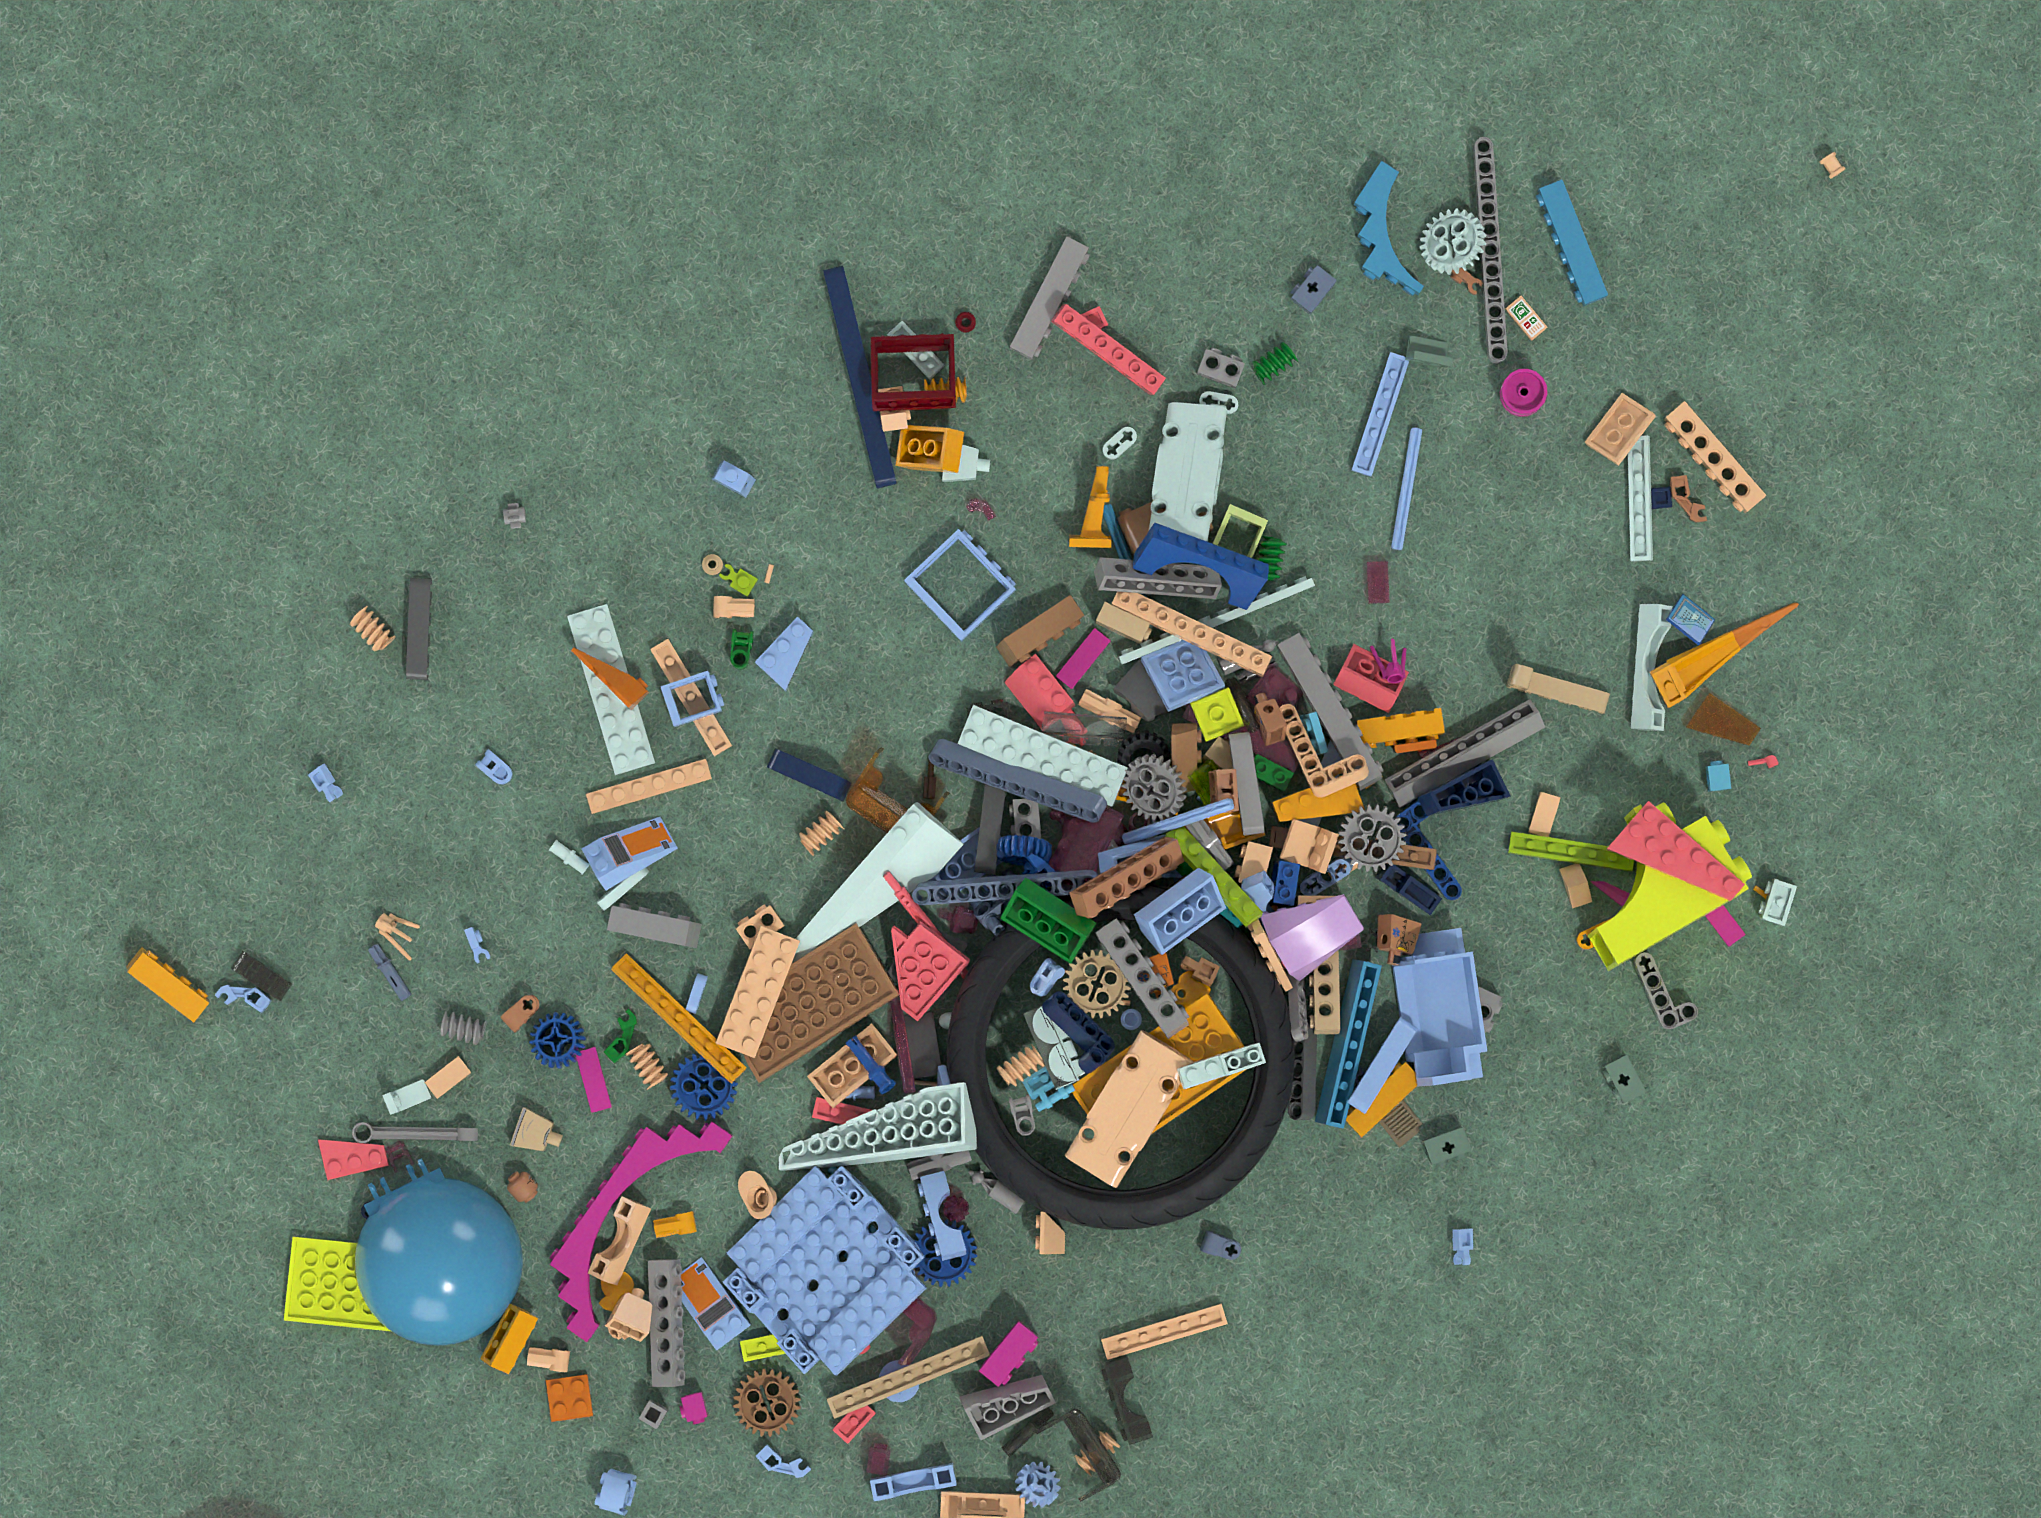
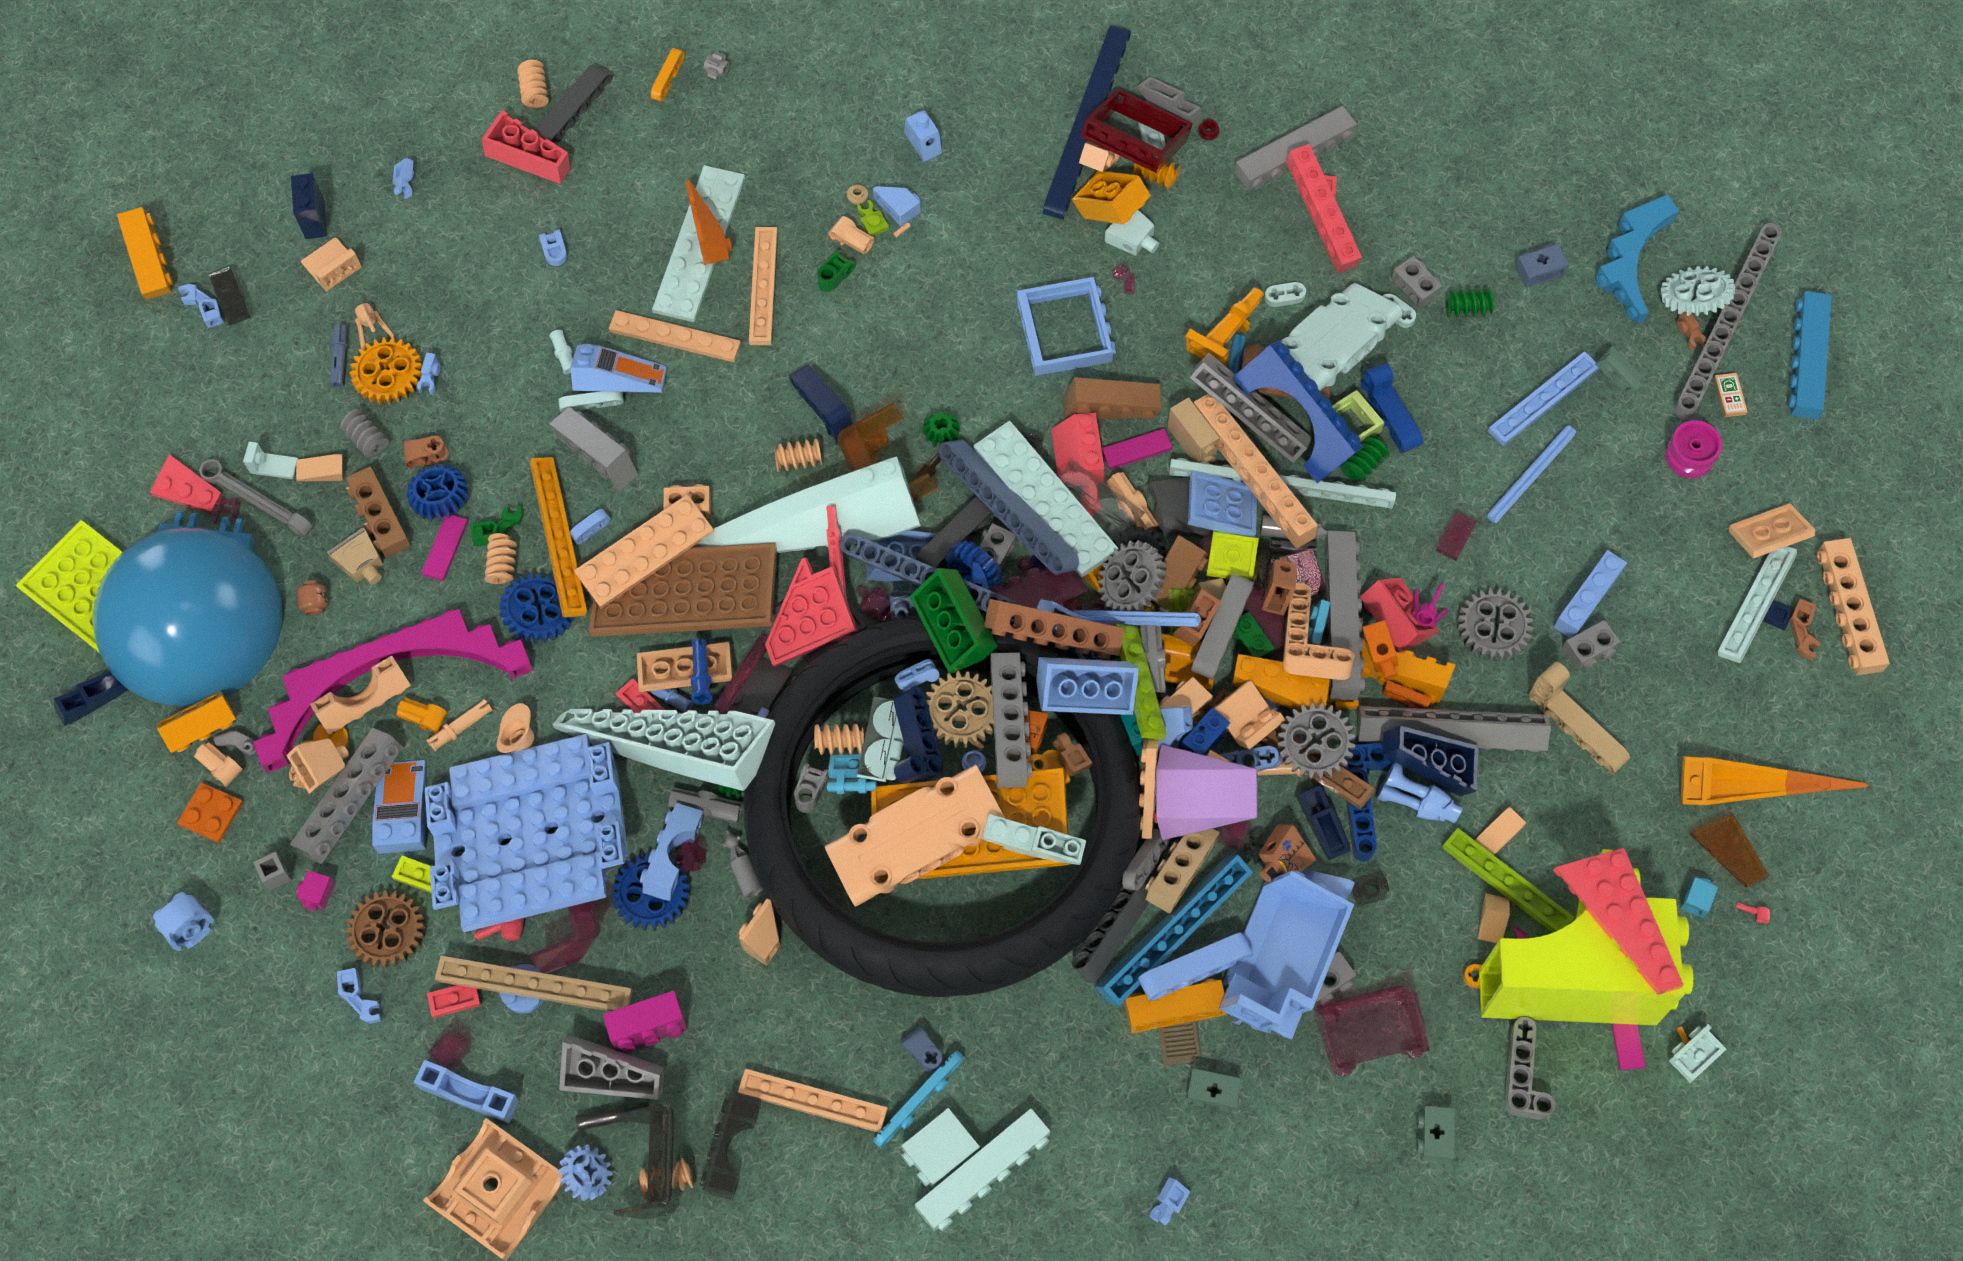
camera: 30 degrees right, 20 degrees down
(273, 862) = (308, 206): none -> dark blue brick
(322, 896) = (331, 264): none -> light nougat bracket
(404, 696) = (524, 149): none -> coral wedge
(409, 1370) = (88, 697): none -> dark blue slope
(420, 960) = (386, 370): none -> light orange gear
(476, 543) = (669, 70): none -> light orange beam
(548, 1330) = (236, 739): none -> light grey arm
(552, 1096) = (365, 483): none -> medium nougat brick
(671, 704) = (765, 263): light blue window -> none
(709, 1214) = (459, 725): none -> light nougat pin
(753, 553) = (898, 203): none -> light blue slope
(785, 653) = (872, 293): light blue wedge -> none
(918, 317) = (1170, 100): none -> light grey slope
(924, 742) = (947, 424): none -> green gear
(1245, 1264) = (903, 1117): none -> medium azure piece
(1266, 501) = (1383, 397): none -> blue beam
(1277, 1310) = (939, 1149): none -> light aqua brick
(1317, 1306) = (982, 1170): none -> light aqua brick
(1372, 724) = (1381, 649): none -> orange torso
(1431, 649) = (1516, 628): none -> light grey gear
(1464, 924) = (1362, 896): none -> clear smoke brick
(1479, 825) = (1434, 802): none -> light blue piece
(1509, 572) = (1590, 594): none -> light blue arch
(1528, 613) = (1588, 642): none -> light grey brick
(1532, 1028) = (1371, 1027): none -> clear pink windscreen
(1652, 627) = (1709, 719): light aqua arch -> none
(1690, 619) = (1750, 734): piece -> none

